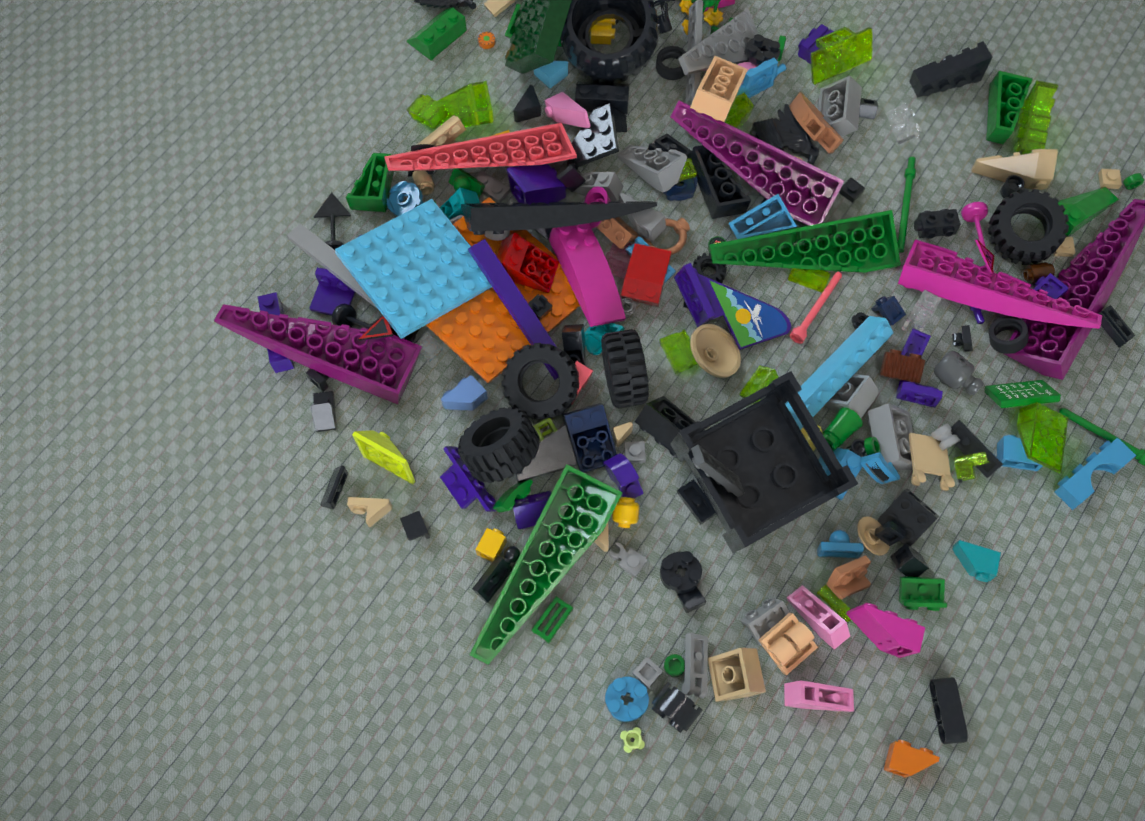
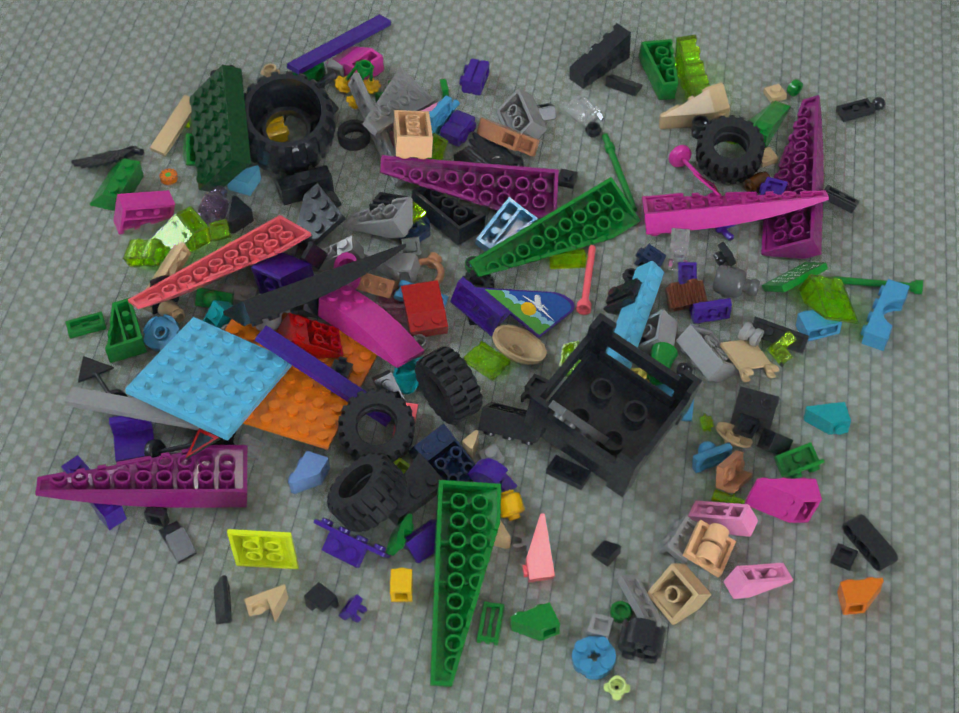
camera: 25 degrees left, 15 degrees down
(346, 164) = (87, 326): none -> green tile
(438, 546) = (351, 607): none -> dark purple tile
(447, 64) = (142, 208): none -> dark pink wedge
(496, 574) = (419, 606): black plate -> none
(504, 114) = (220, 230): none -> clear neon green plate
(509, 88) = (214, 205): none -> clear purple piece
(566, 111) = (278, 203): bright pink slope -> none
(592, 641) = (536, 622): none -> green slope
(623, 580) = (539, 558): none -> coral slope
(667, 203) = (412, 244): none -> pearl dark grey plate
(681, 560) = (582, 524): black plate -> none
(710, 401) = (532, 385): none -> black plate
(760, 43) = (430, 95): black plate -> none
(773, 94) = (458, 128): none -> dark purple brick
(840, 53) = (499, 75): clear neon green bracket -> none
(840, 340) = (622, 295): none -> black plate
(853, 510) = (706, 422): none -> clear neon green plate
(871, 445) = (695, 364): green tile -> none
(879, 469) = (712, 379): dark azure slope -> none
(906, 144) = (593, 129): none -> black plate
(915, 711) = (844, 557): none -> black tile
(937, 223) = (654, 176): black brick -> none
(959, 108) = (623, 85): none -> black slope
(1008, 323) = (763, 246): black tyre -> none

